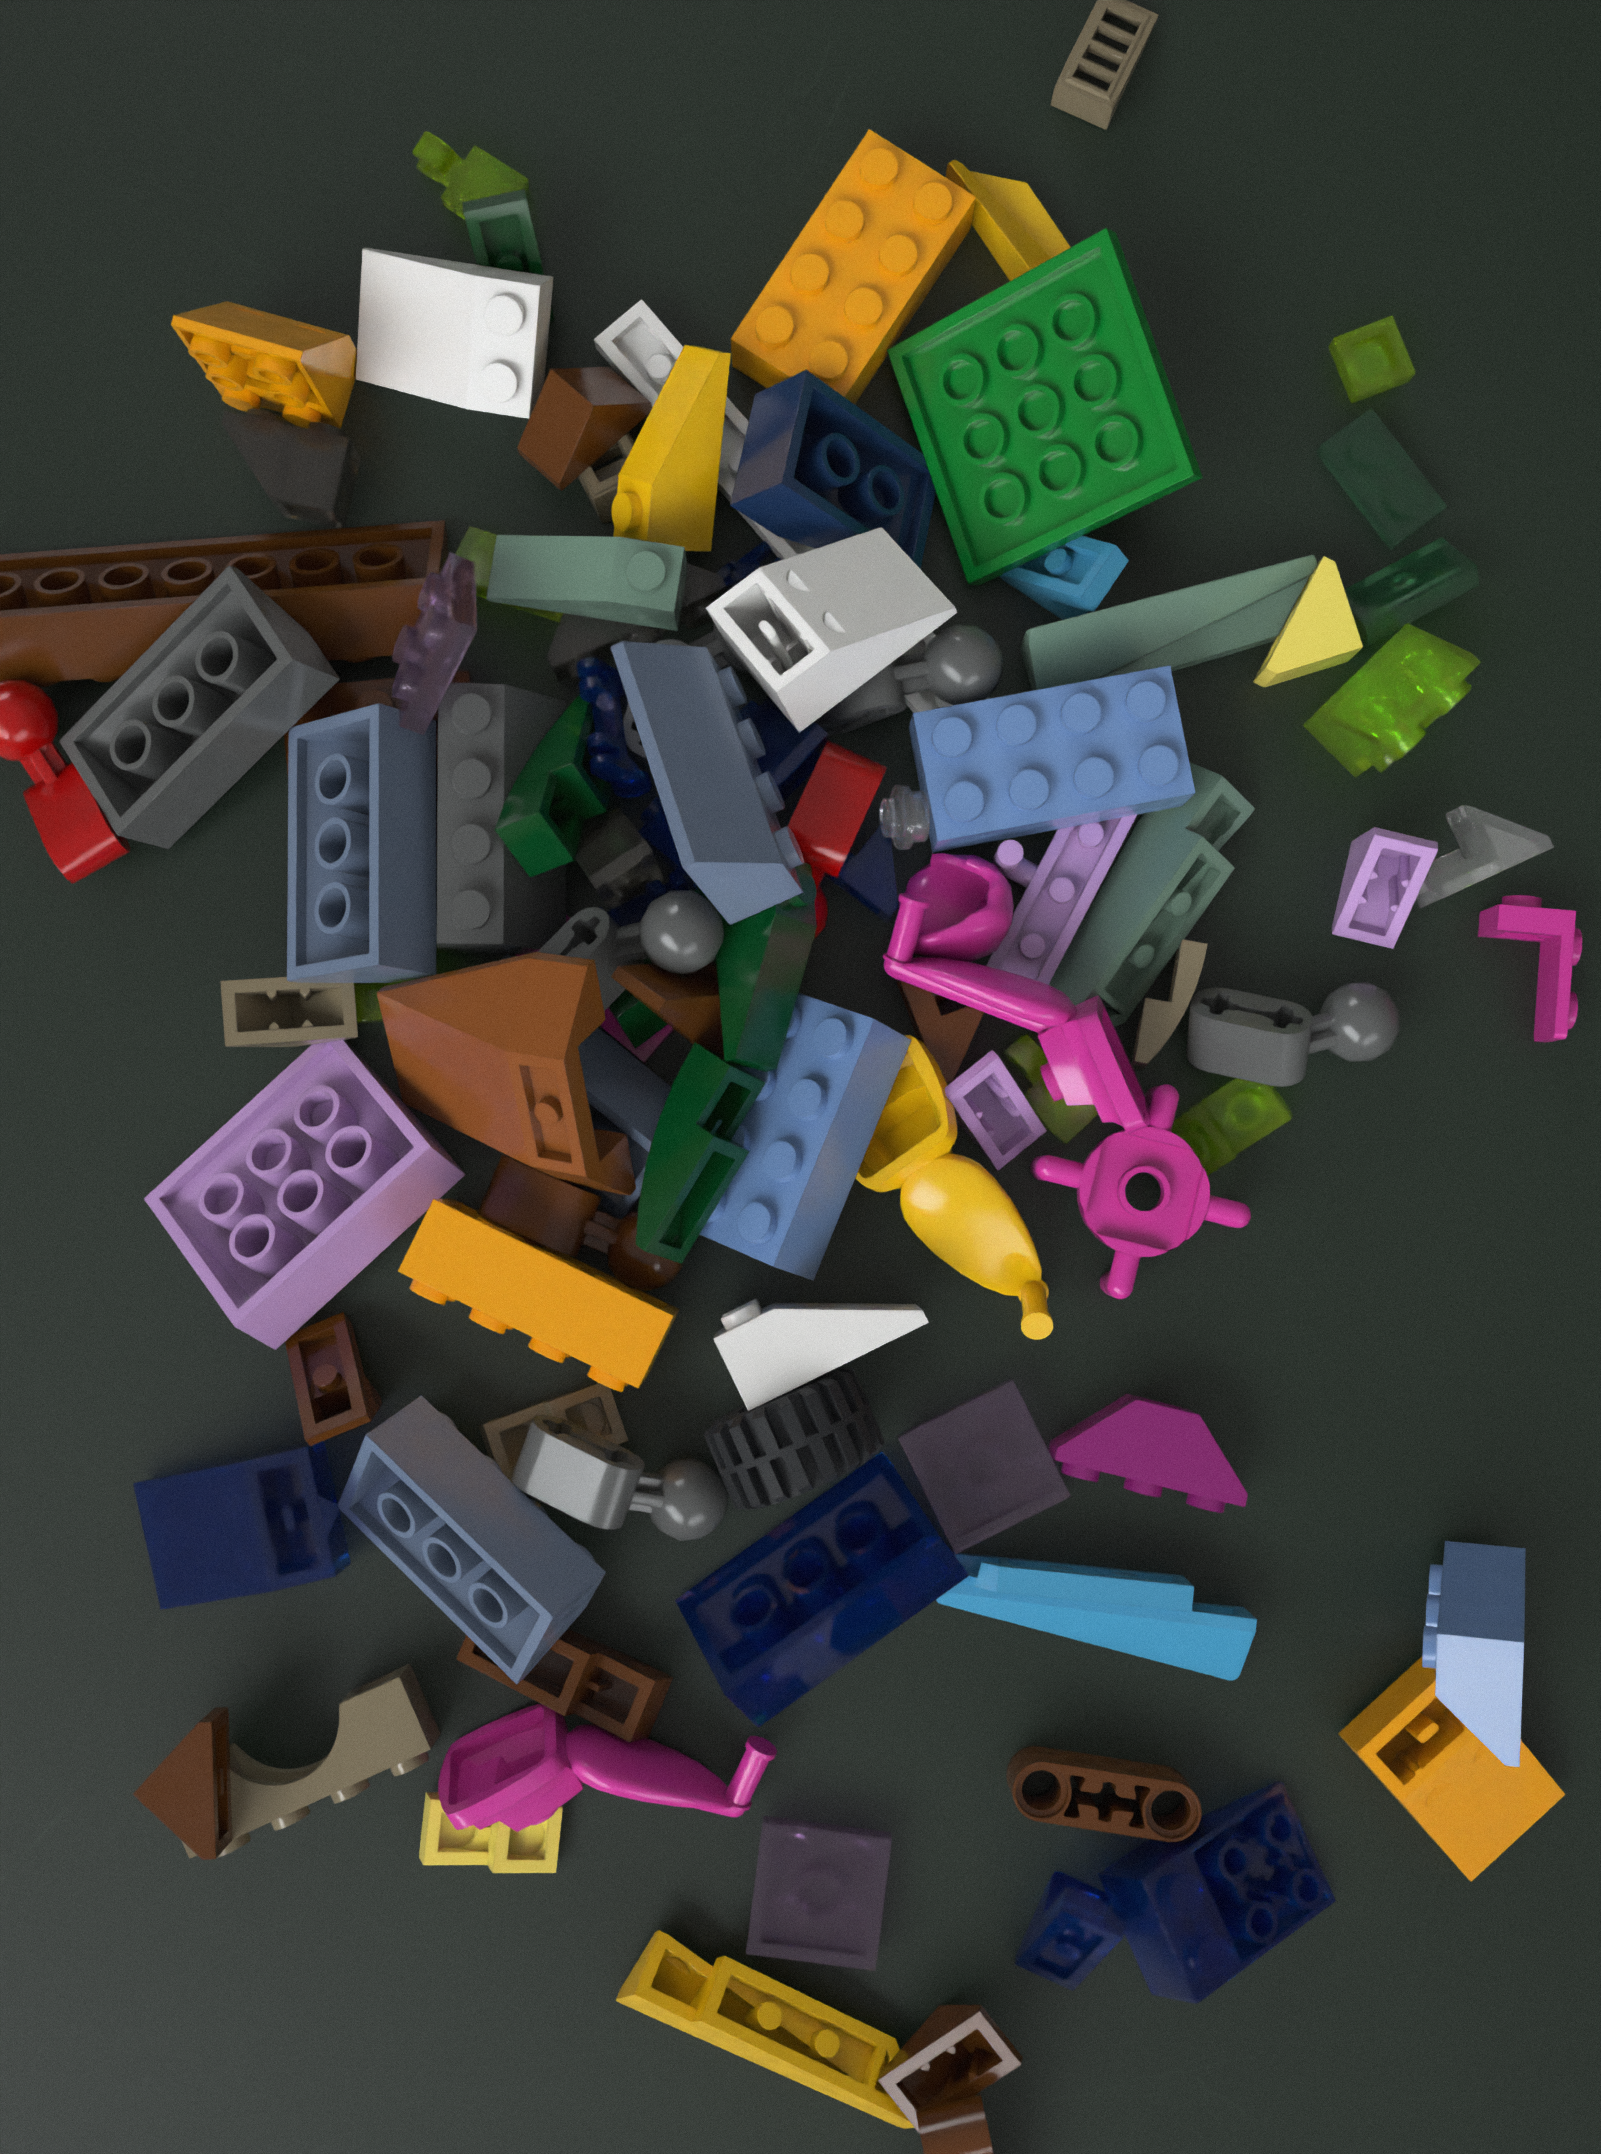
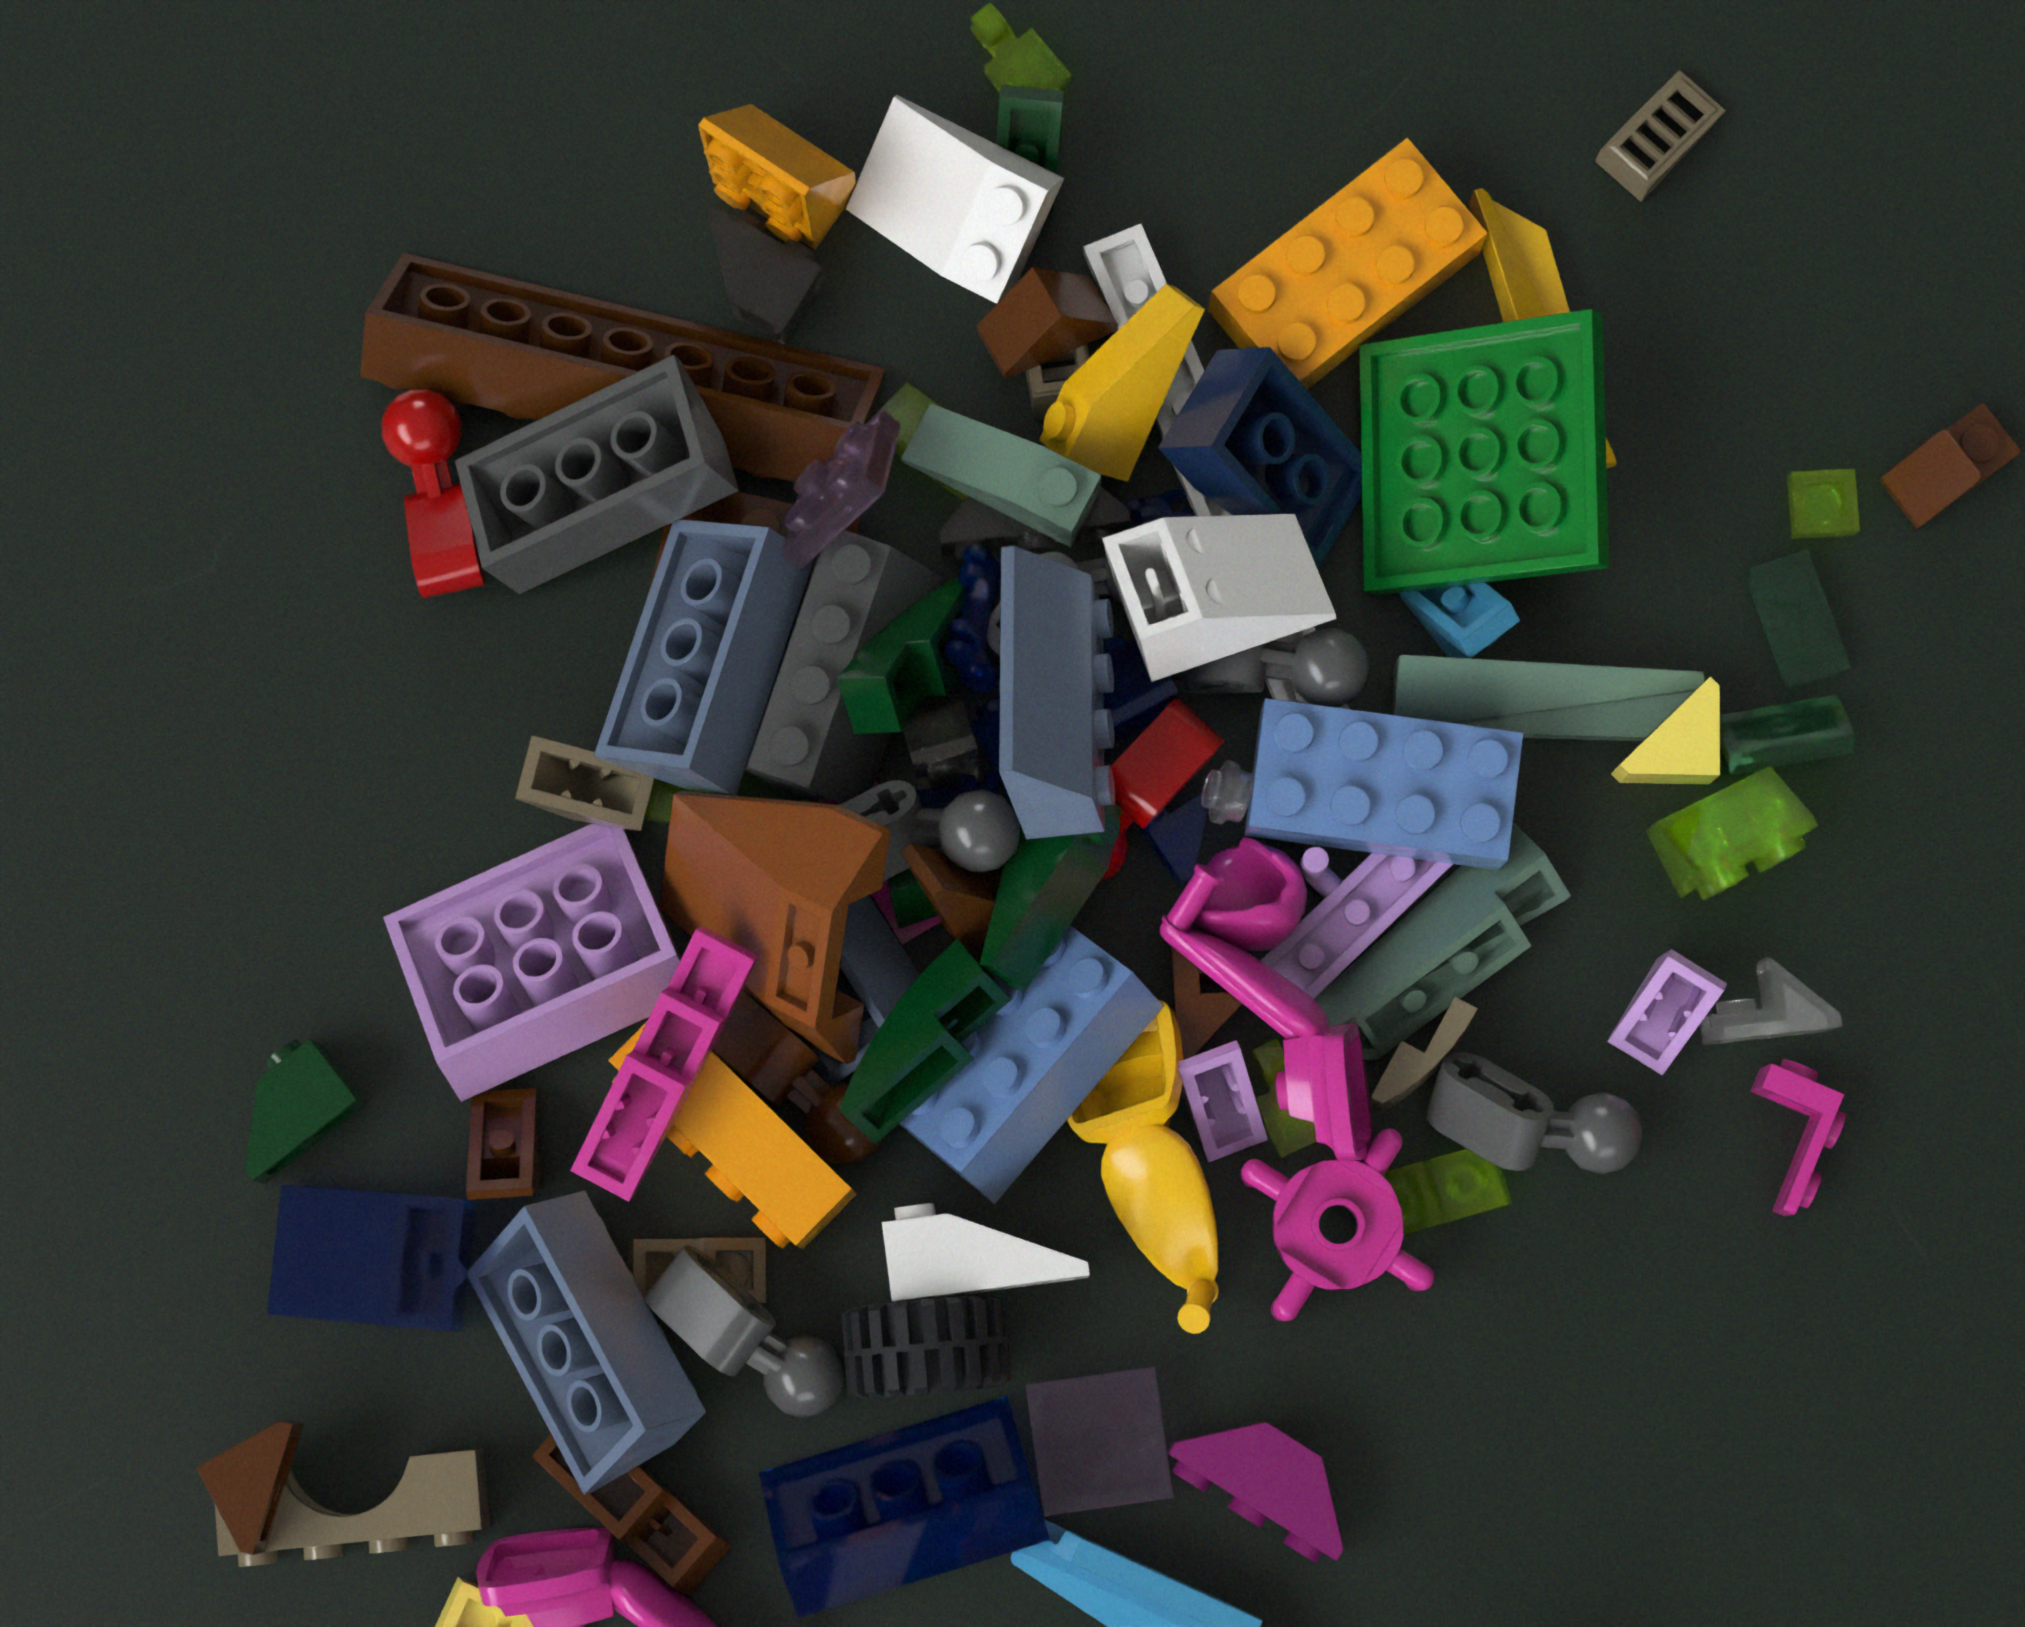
camera: 25 degrees right, 5 degrees down
(120, 1407) = (296, 1107): none -> dark green slope
(452, 1257) = (664, 1063): none -> dark pink slope
(1477, 286) = (1949, 465): none -> reddish brown slope

